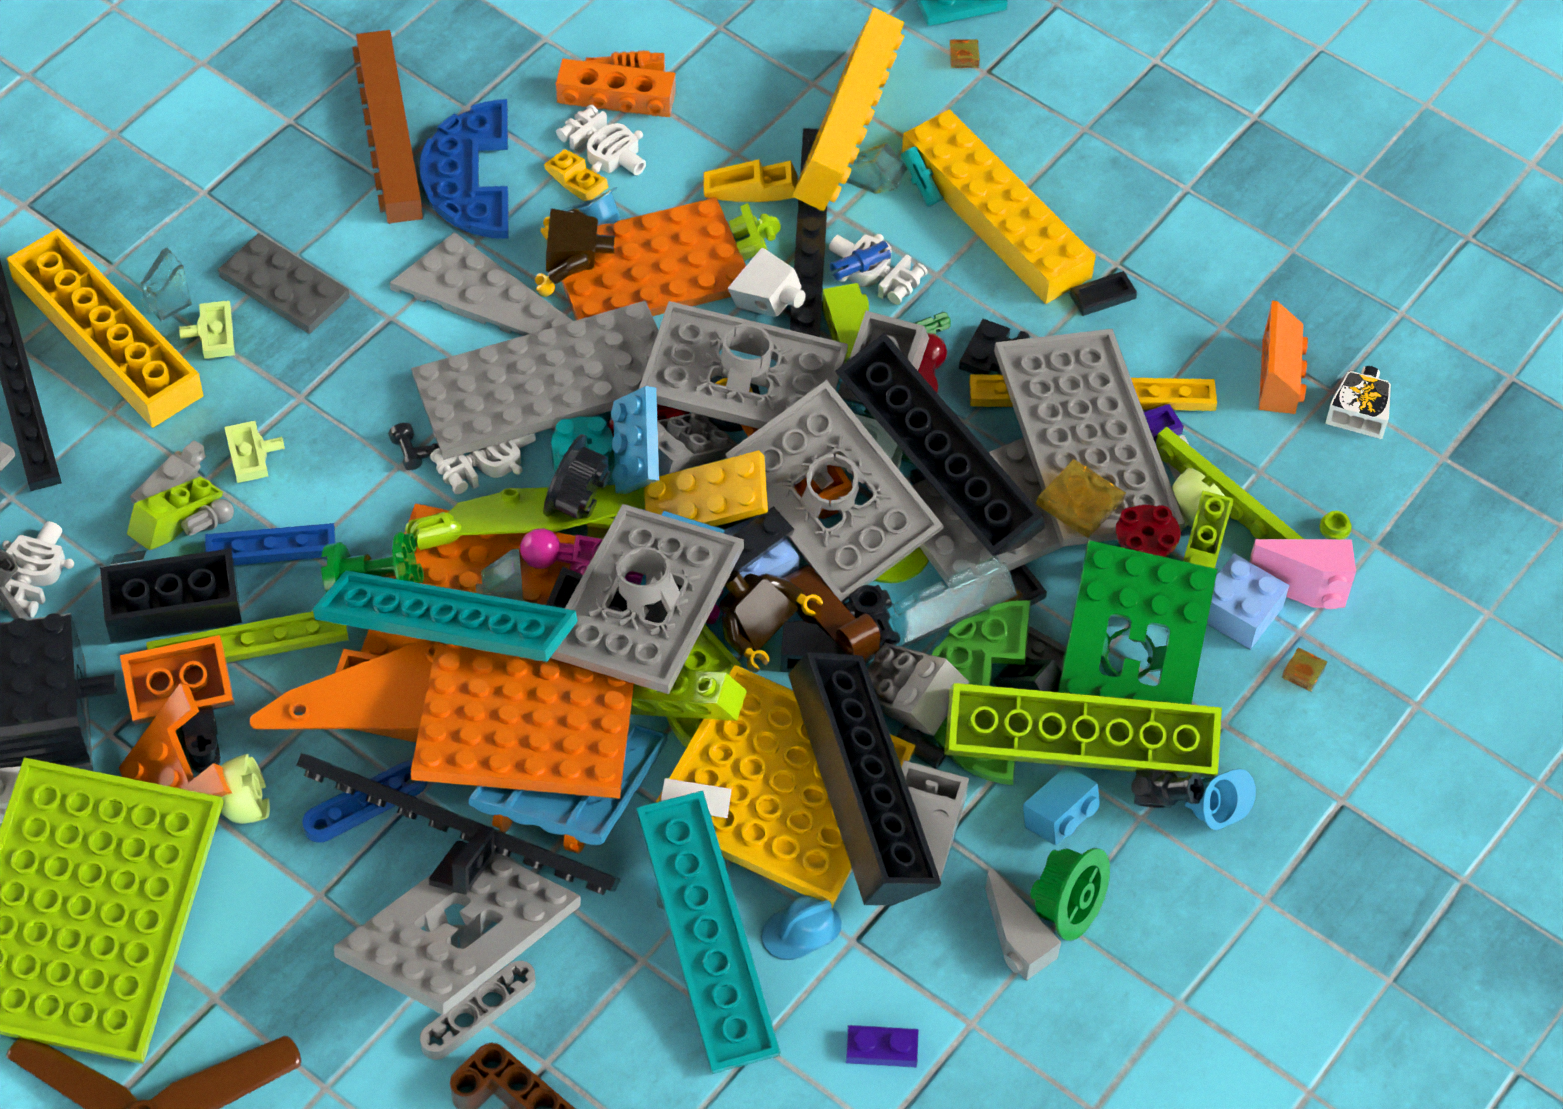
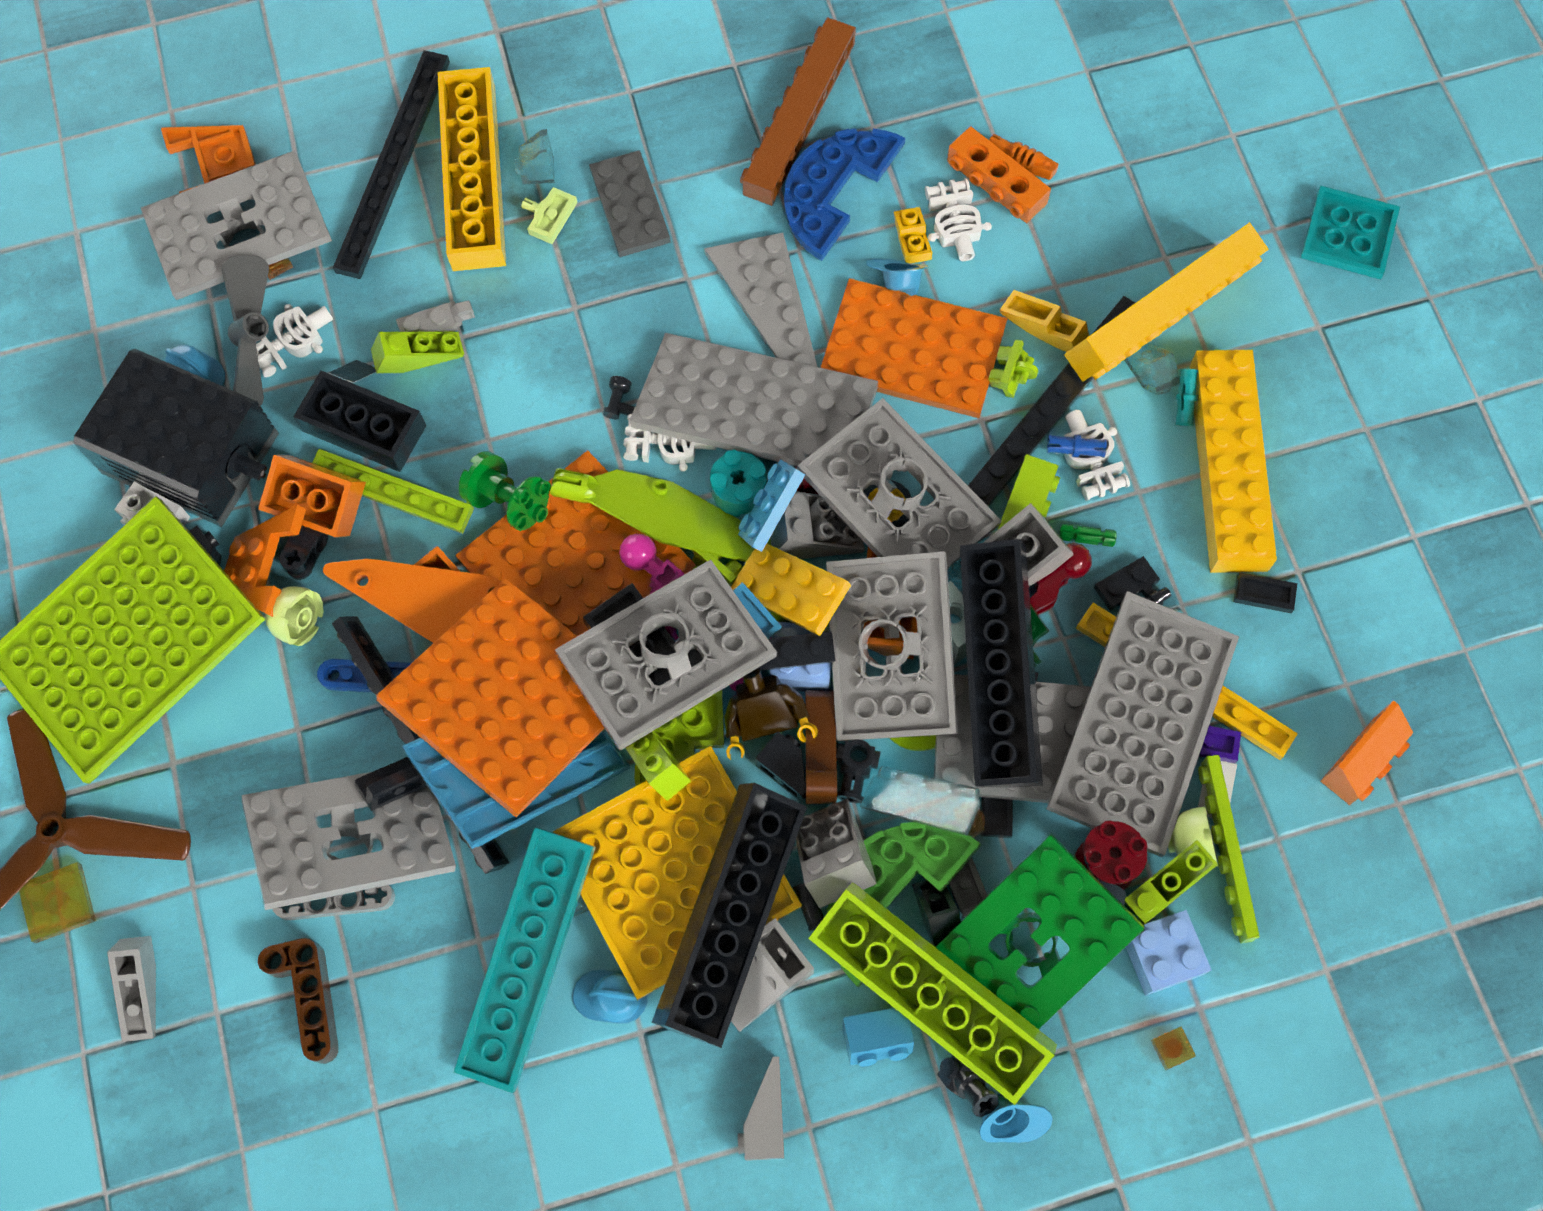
camera: 40 degrees right, 15 degrees up
(208, 517) = (450, 370): light grey axle -> none
(249, 450) = (503, 332): yellowish green plate -> none
(273, 543) = (463, 421): blue plate -> none
(446, 615) = (511, 575): teal plate -> none
(503, 577) = (587, 567): clear light blue slope -> none
(570, 246) = (855, 298): dark brown torso -> none
(577, 481) = (698, 513): black piece -> none
(716, 797) = (607, 851): white sticker -> none
(767, 286) = (985, 423): white torso -> none
(882, 1046) = (594, 1139): dark purple plate -> none
(964, 53) = (1311, 301): clear orange plate -> none
(1072, 890) = (823, 1119): green piece -> none
(1080, 498) = (1087, 781): clear yellow plate -> none
(1315, 569) = (1241, 968): bright pink slope -> none
(1335, 525) = (1302, 934): lime plate -> none
(1361, 403) = (1413, 835): torso -> none

